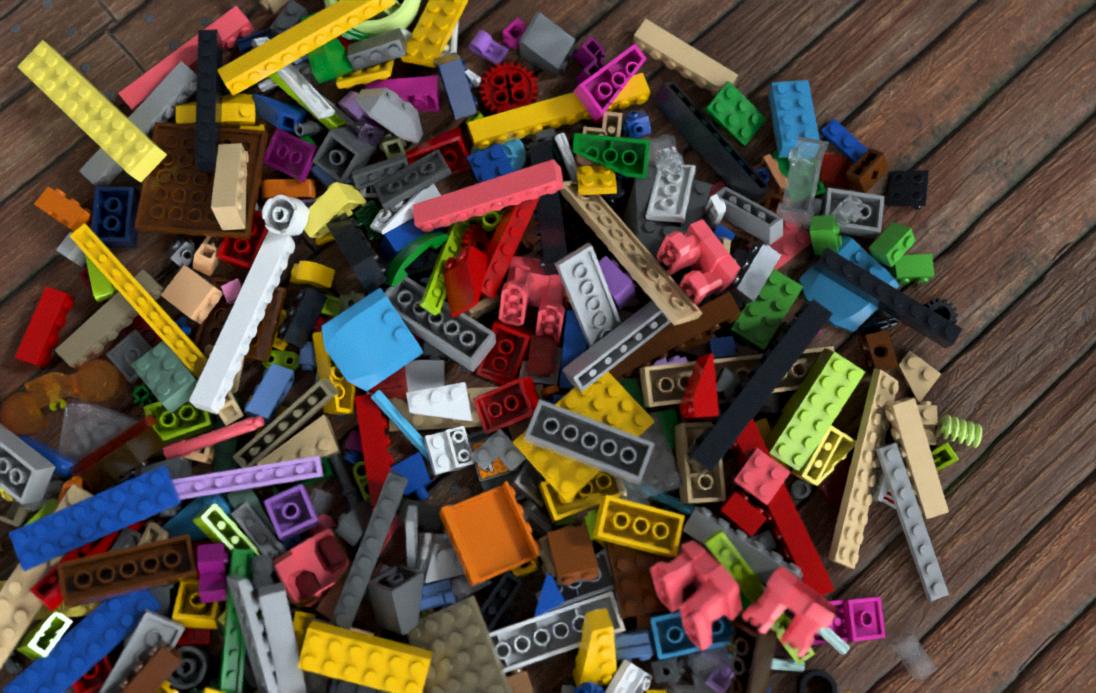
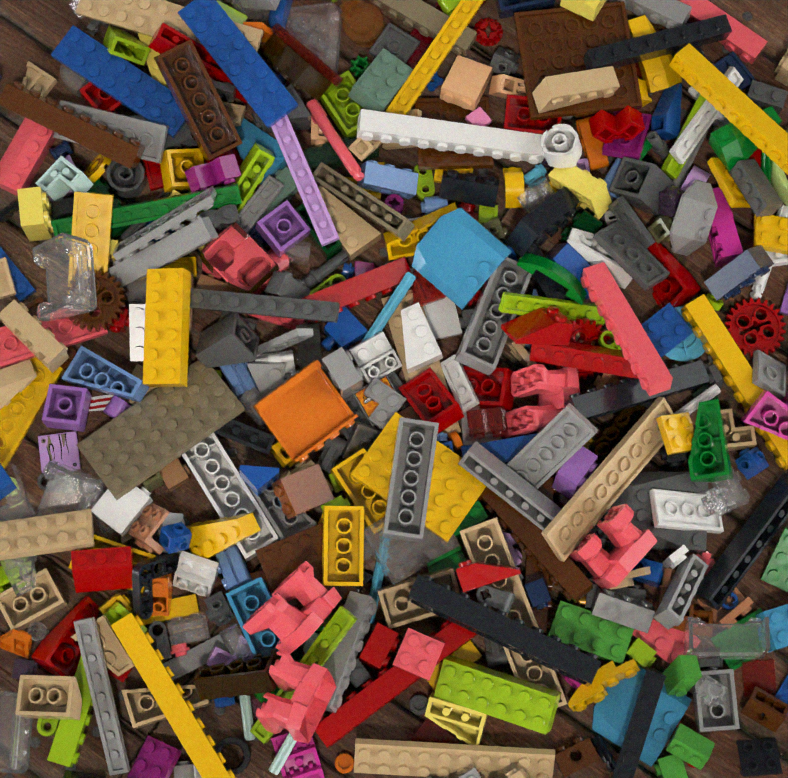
camera: 75 degrees right, 0 degrees up
(153, 256) = (494, 36): none -> red gear
(280, 152) = (625, 125): none -> red brick
(290, 394) = (395, 199): none -> magenta wheel
(303, 250) = (535, 174): none -> medium azure pin
(325, 253) = (536, 194): none -> clear brick
(459, 485) = (342, 373): none -> light grey brick
(495, 374) = (459, 384): none -> white plate
(557, 86) = (769, 374): none -> light grey tile
(794, 267) = (641, 653): none -> lime brick
(810, 282) = (606, 676): none -> yellow slope
(843, 576) = (344, 763): none -> orange tile

